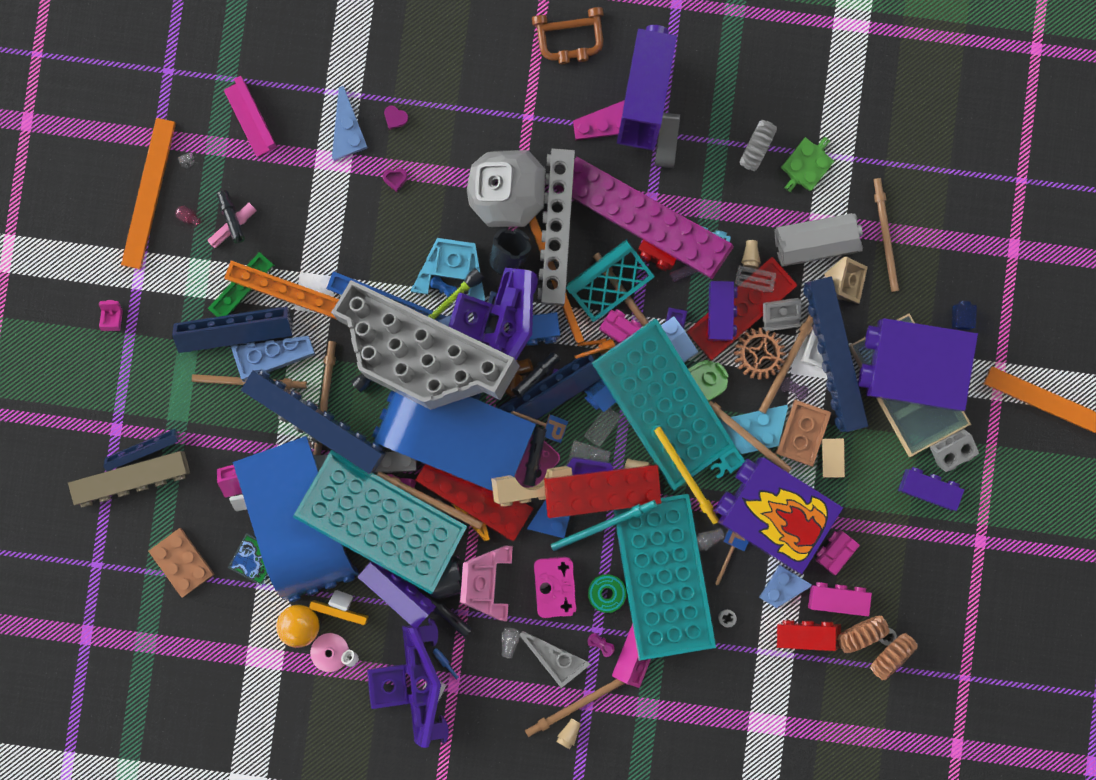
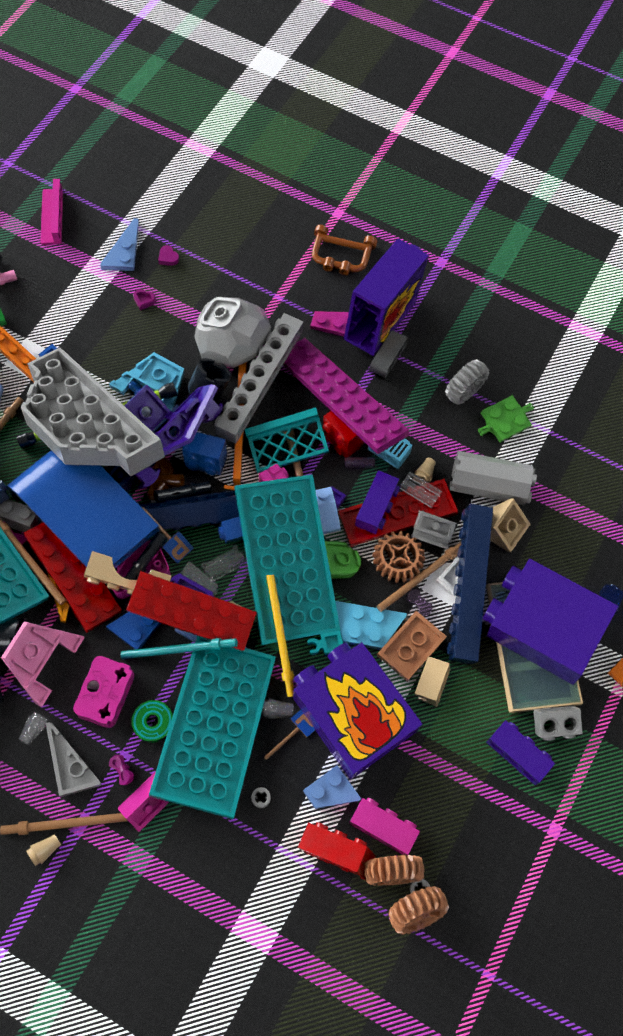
camera: 20 degrees right, 20 degrees down
(748, 437) = (355, 623): medium nougat bar -> none
(836, 552) = (400, 775): dark pink brick -> none
(880, 199) = (563, 470): medium nougat bar -> none

